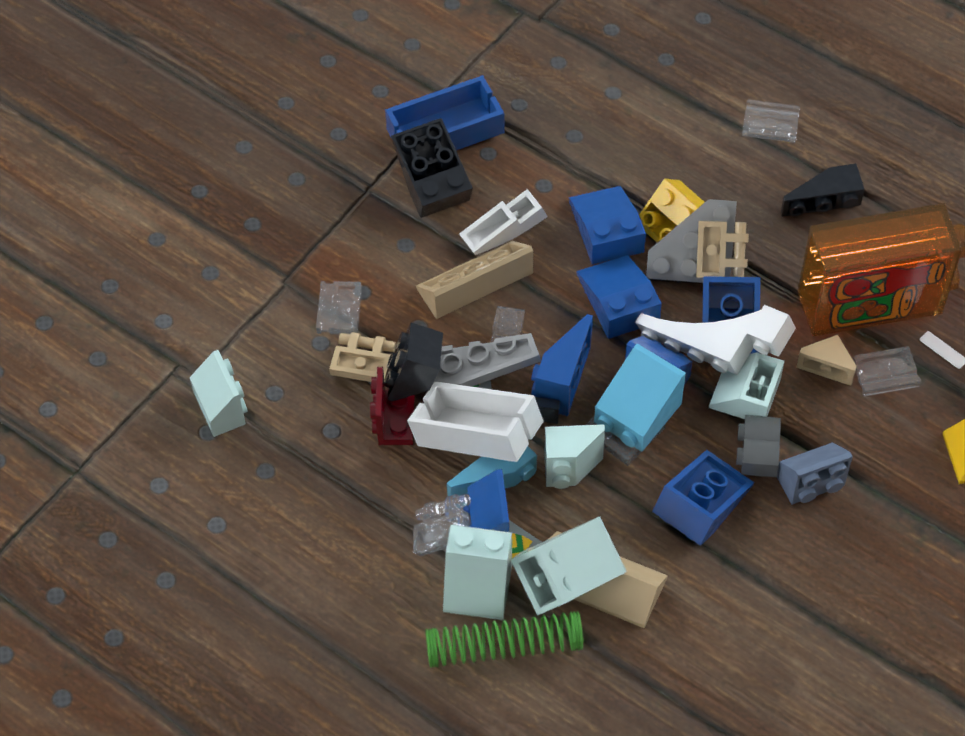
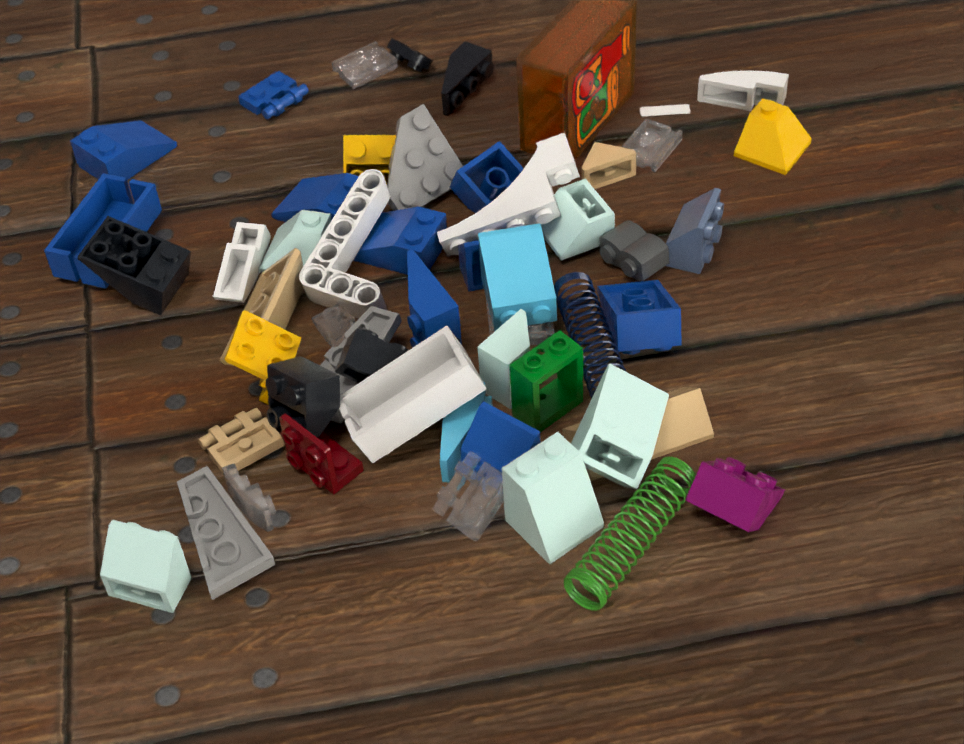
camera: 45 degrees left, 10 degrees down
(286, 410) = (223, 537): none -> light grey wing
(322, 402) = (249, 498): none -> clear slope
(339, 307) = (172, 422): clear plate -> none
(430, 302) = (259, 344): none -> yellow bracket
(481, 370) = (366, 354): none -> black slope
(531, 58) = (120, 148): none -> blue slope
(555, 243) = (299, 232): none -> light aqua slope
(568, 494) = (557, 398): none -> green window
(570, 272) = (325, 270): none -> white beam
(598, 676) = (734, 493): none -> magenta slope
(671, 441) = (570, 302): none -> dark blue piece
(680, 94) = (273, 95): none -> blue plate
(712, 249) = (439, 149): tan plate -> none
(812, 139) = (402, 51): none -> black plate

